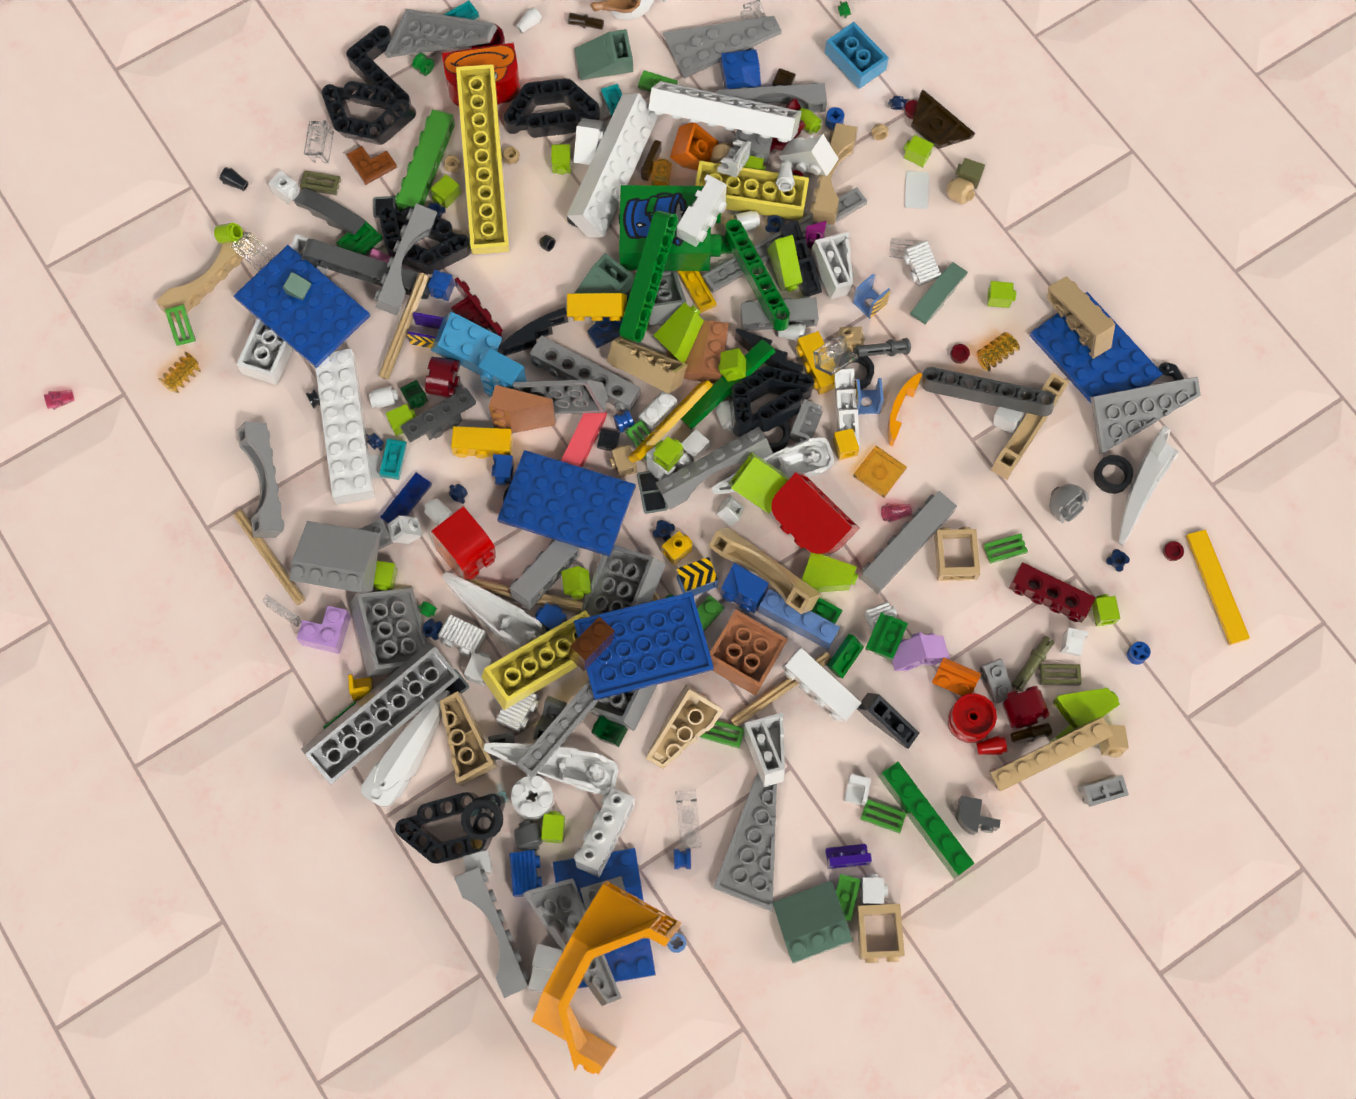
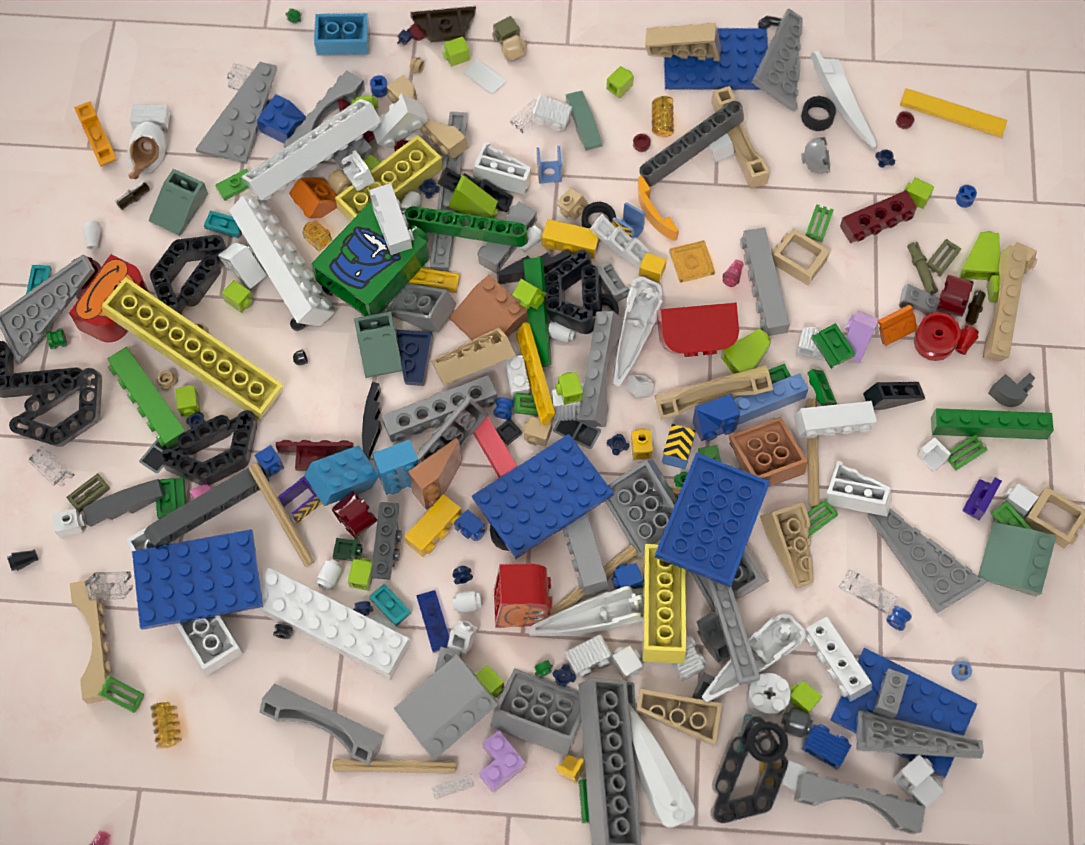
camera: 50 degrees left, 5 degrees down
(228, 233) = (76, 593): lime brick -> none
(296, 286) = (181, 568): sand green slope -> none
(369, 168) = (110, 446): dark orange plate -> none
(418, 227) = (249, 498): light grey arch -> none
(576, 582) = (612, 537): lime brick -> none
(591, 643) = (692, 549): reddish brown brick -> none
(596, 306) = (393, 357): yellow brick -> none
(608, 924) = (939, 700): light orange panel -> none
(609, 731) = (755, 599): dark green bracket -> none
(648, 276) = (408, 297): green beam -> none
(652, 156) = (298, 233): dark brown tile -> none
(680, 331) = (466, 313): lime slope -> none
(696, 445) = (566, 365): white panel -> none
(758, 481) = (640, 344): lime brick -> none
(783, 78) = (312, 96): dark brown tile -> none
(785, 178) = (405, 148): white cone -> none
(814, 232) = (467, 162): magenta slope -> none
(833, 356) = (581, 222): clear panel -> none
(890, 348) = (600, 182): dark grey pin -> none
(1073, 641) = (925, 231): white panel -> none
(1103, 790) = (1053, 291): light grey hinge -> none

